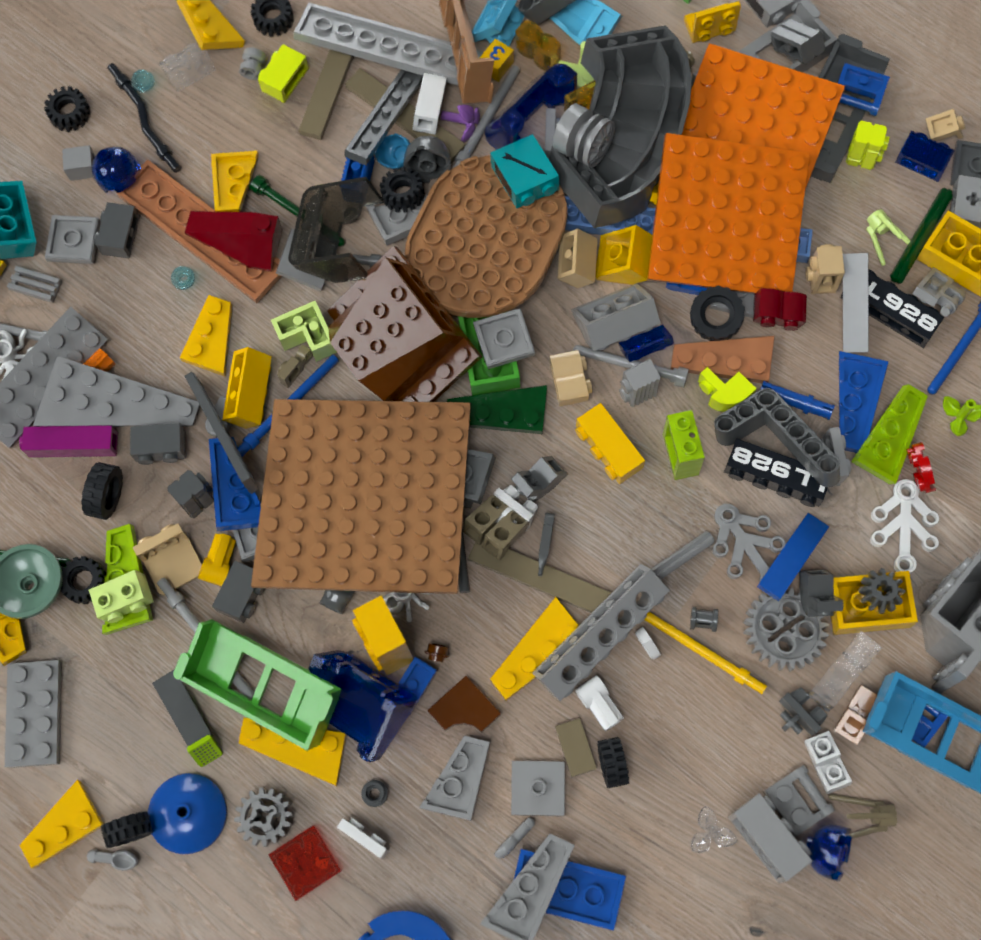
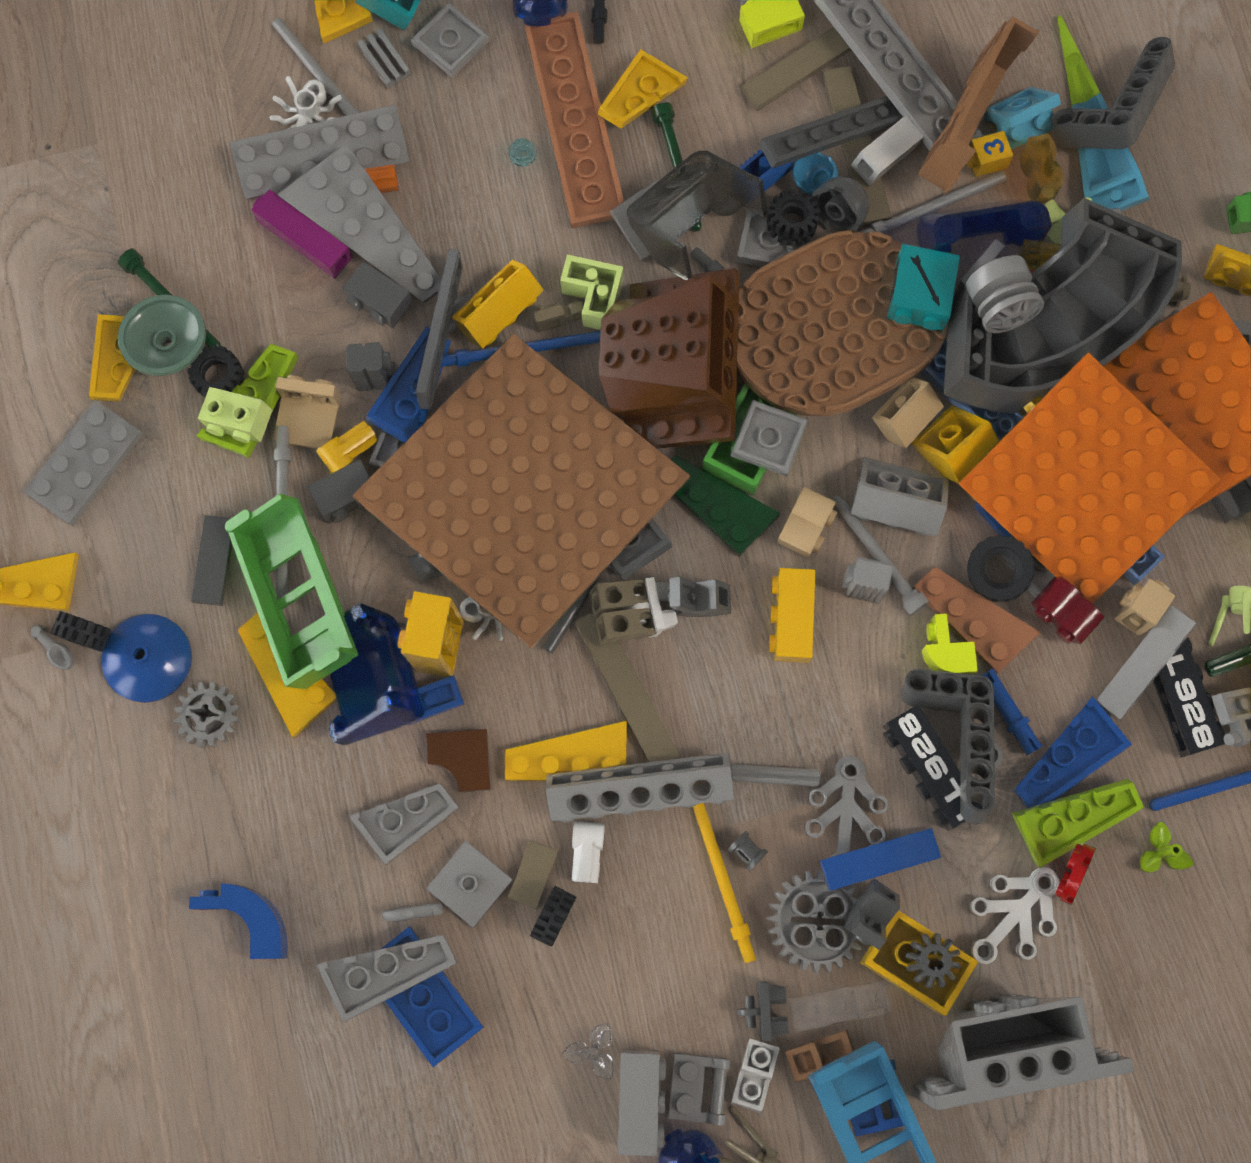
camera: 35 degrees right, 5 degrees up
(102, 491) = (292, 302): black tyre -> none
(117, 230) = (497, 61): dark grey brick -> none
(204, 750) = (203, 613): lime slope -> none
(209, 337) = (503, 228): yellow wing -> none
(240, 235) = (603, 150): dark red wedge -> none
(305, 863) = (213, 784): clear red tile -> none
(368, 787) = (312, 767): dark grey plate -> none
(373, 843) = (282, 815): white plate -> none
(437, 652) = (477, 686): reddish brown plate -> none
(467, 116) = (913, 189): medium lavender plant -> none
(545, 542) = (658, 661): dark grey piece -> none
(646, 343) = (908, 545): clear blue plate -> none
(647, 643) = (676, 831): white tile -> none
(683, 451) = (860, 671): lime window -> none
(837, 444) = (1007, 785): light grey plate -> none

